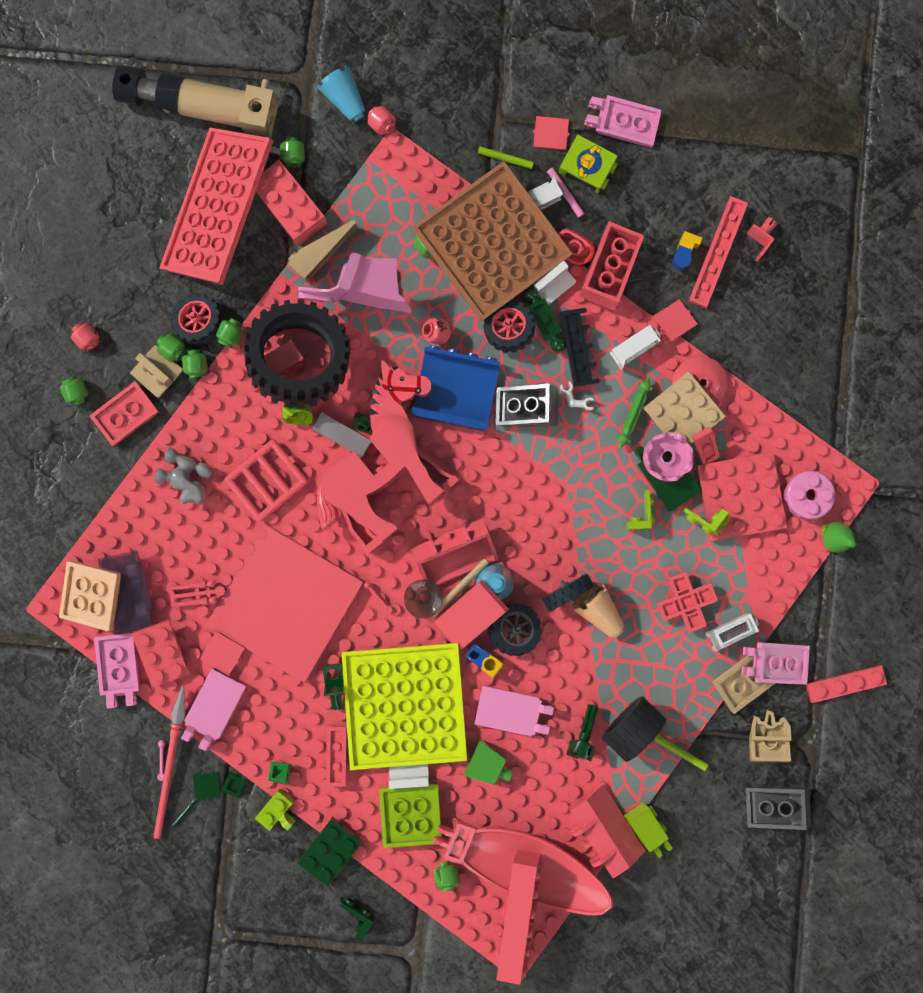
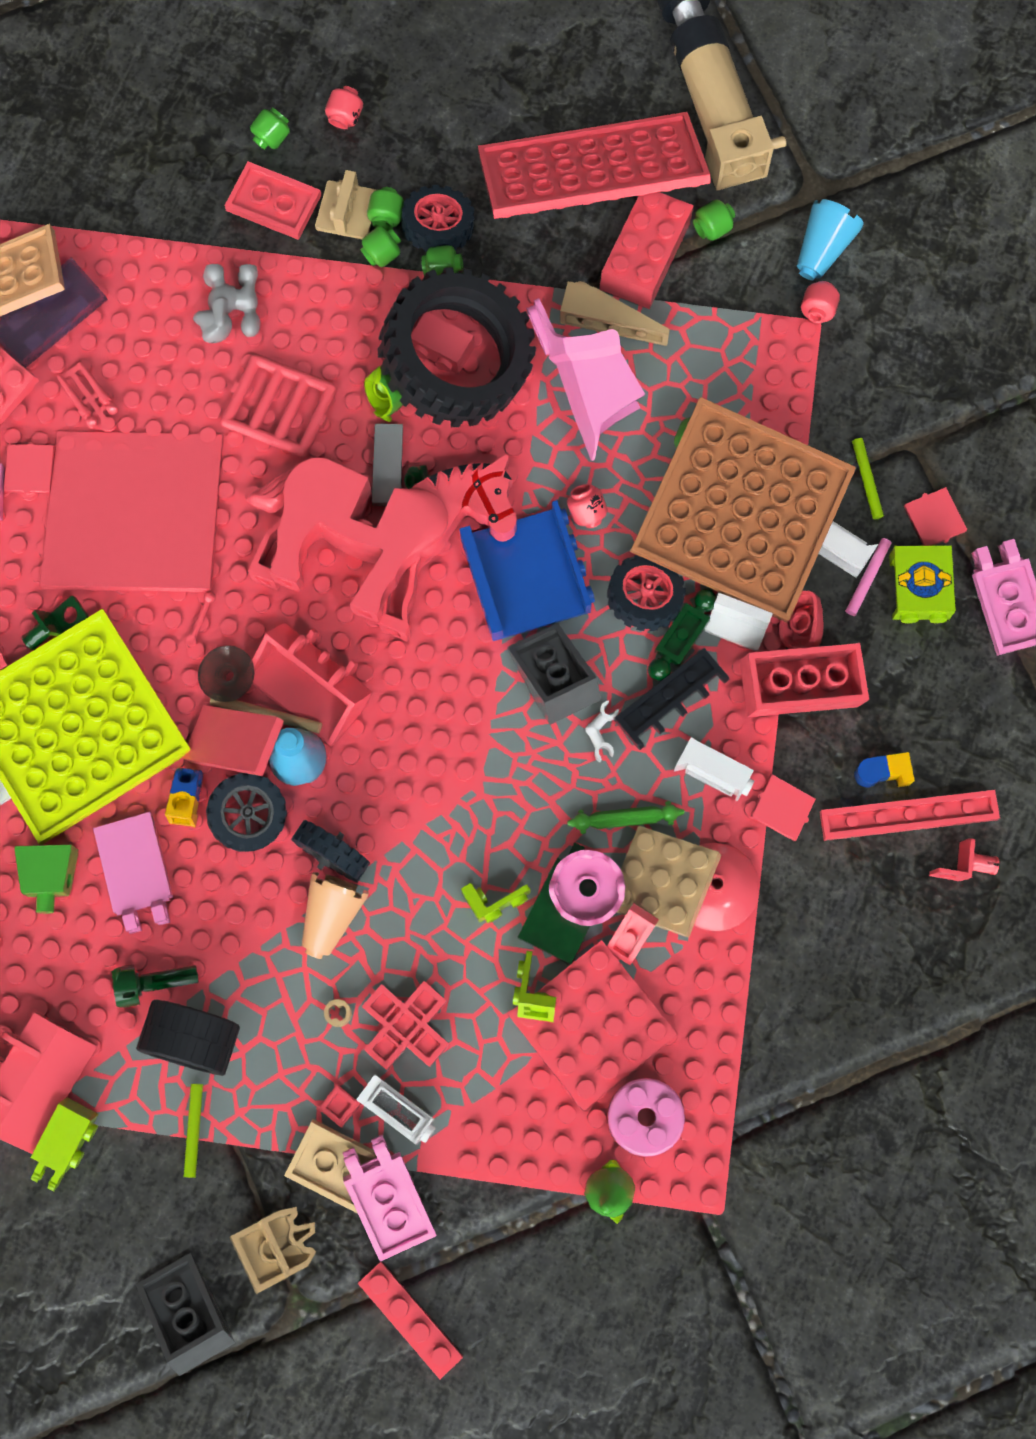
camera: 65 degrees right, 10 degrees down
(663, 640) = (335, 1022): none -> tan bush
(711, 662) = (339, 1106): none -> coral tile

